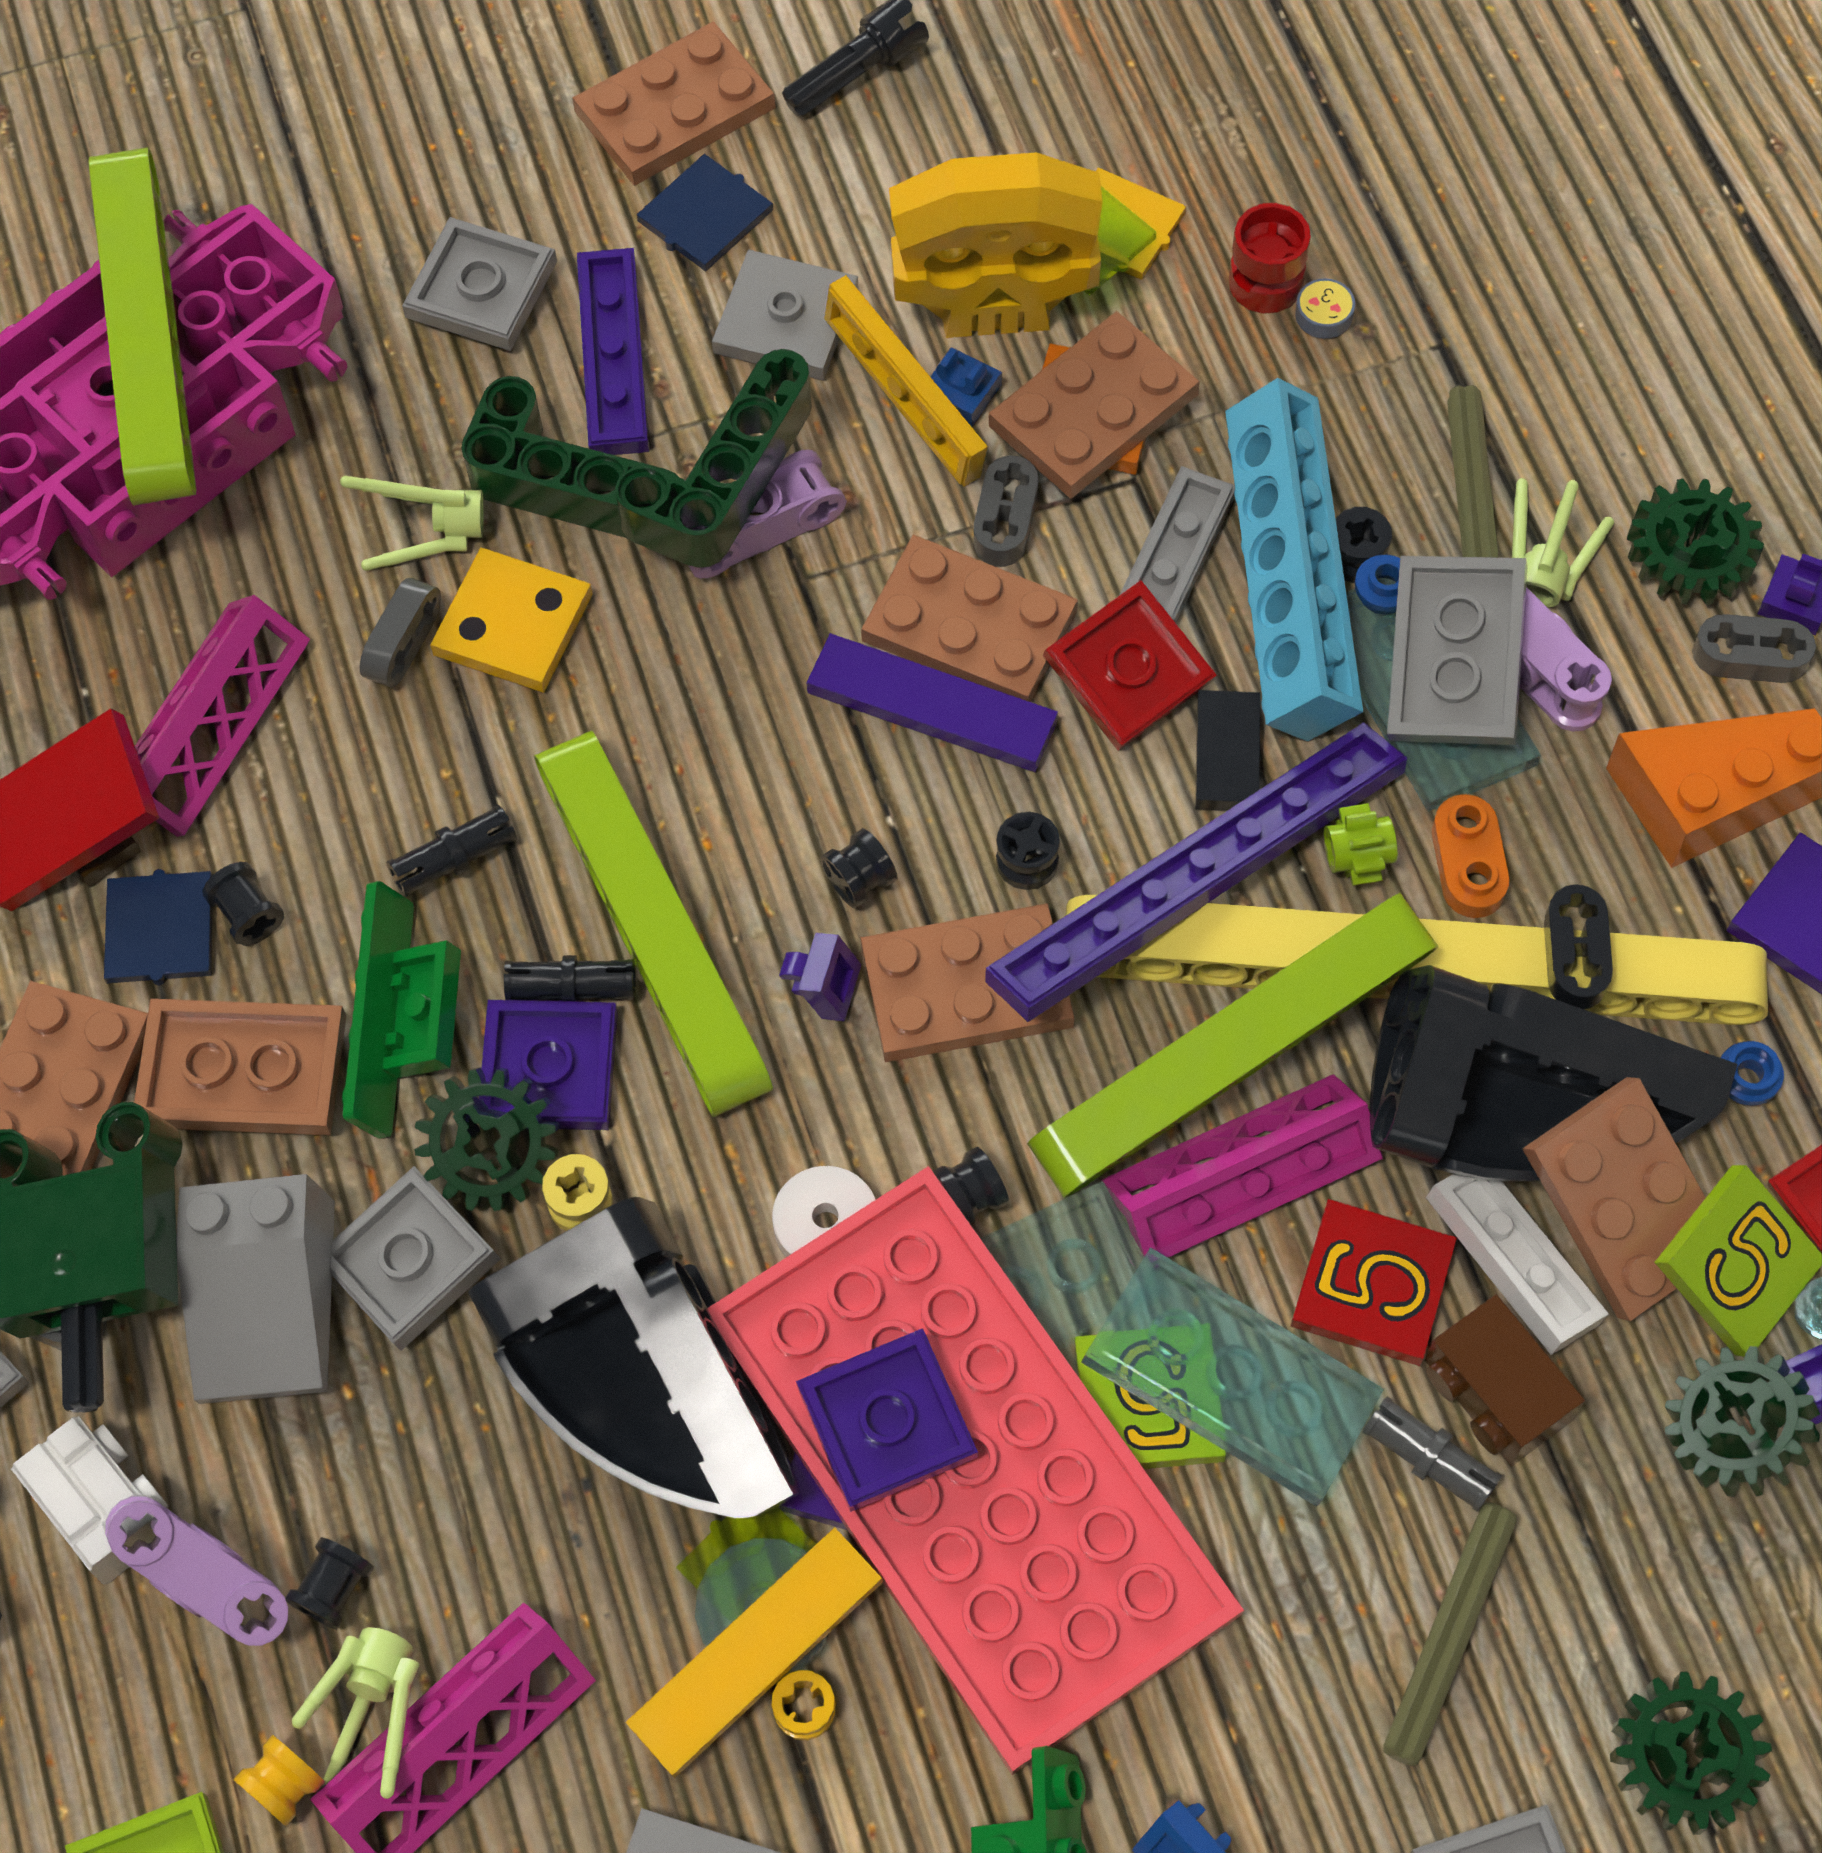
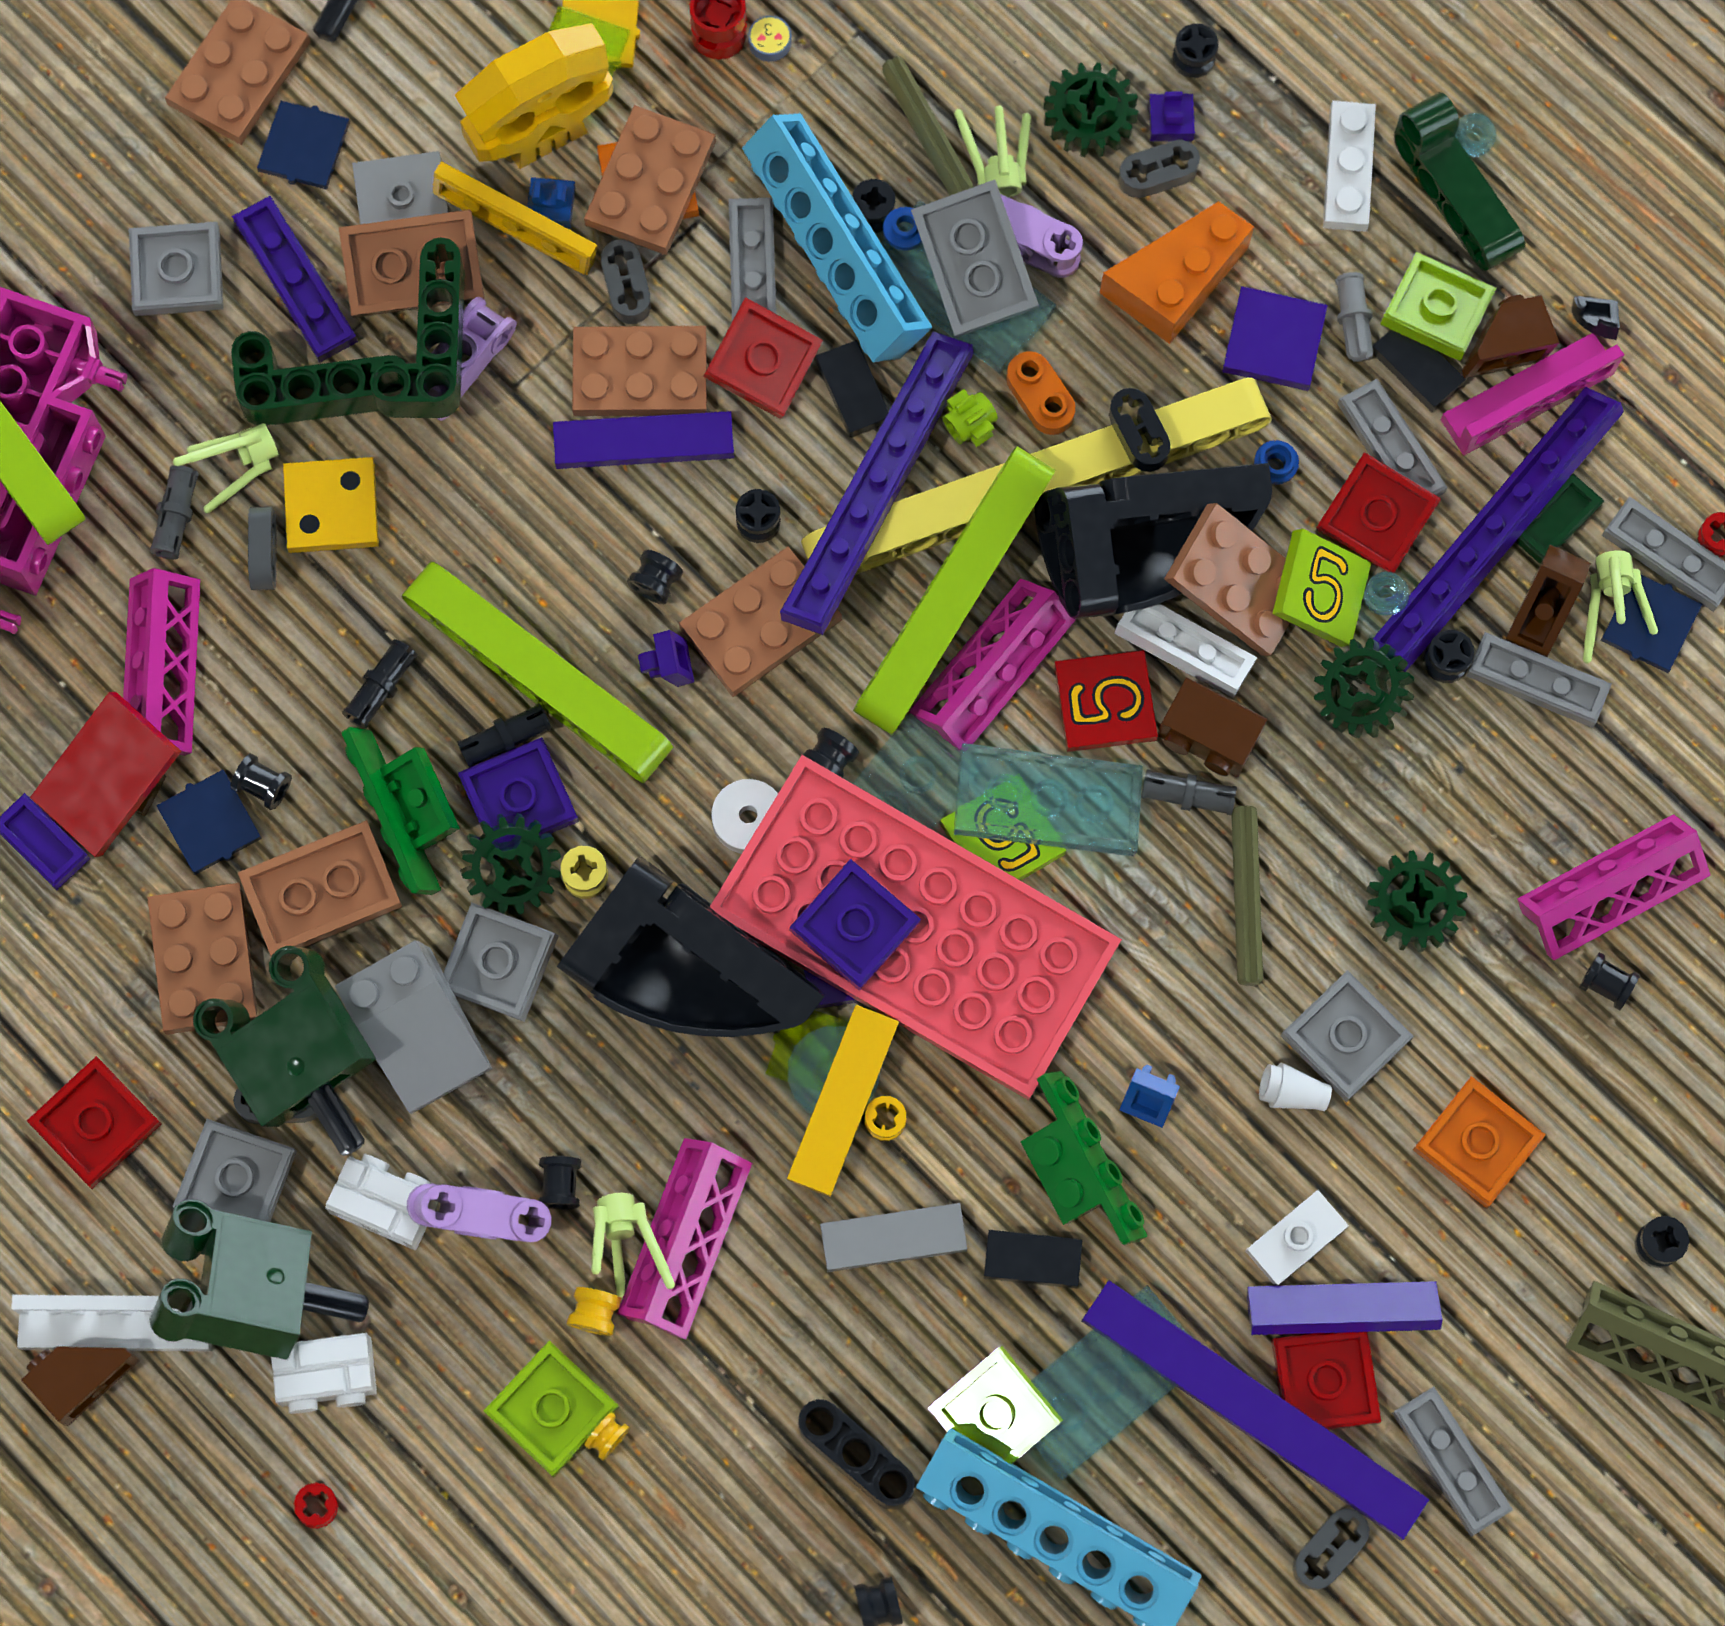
camera: 30 degrees left, 10 degrees up
(323, 549) = (174, 512): none -> dark grey pin
(717, 356) = (385, 260): none -> nougat plate

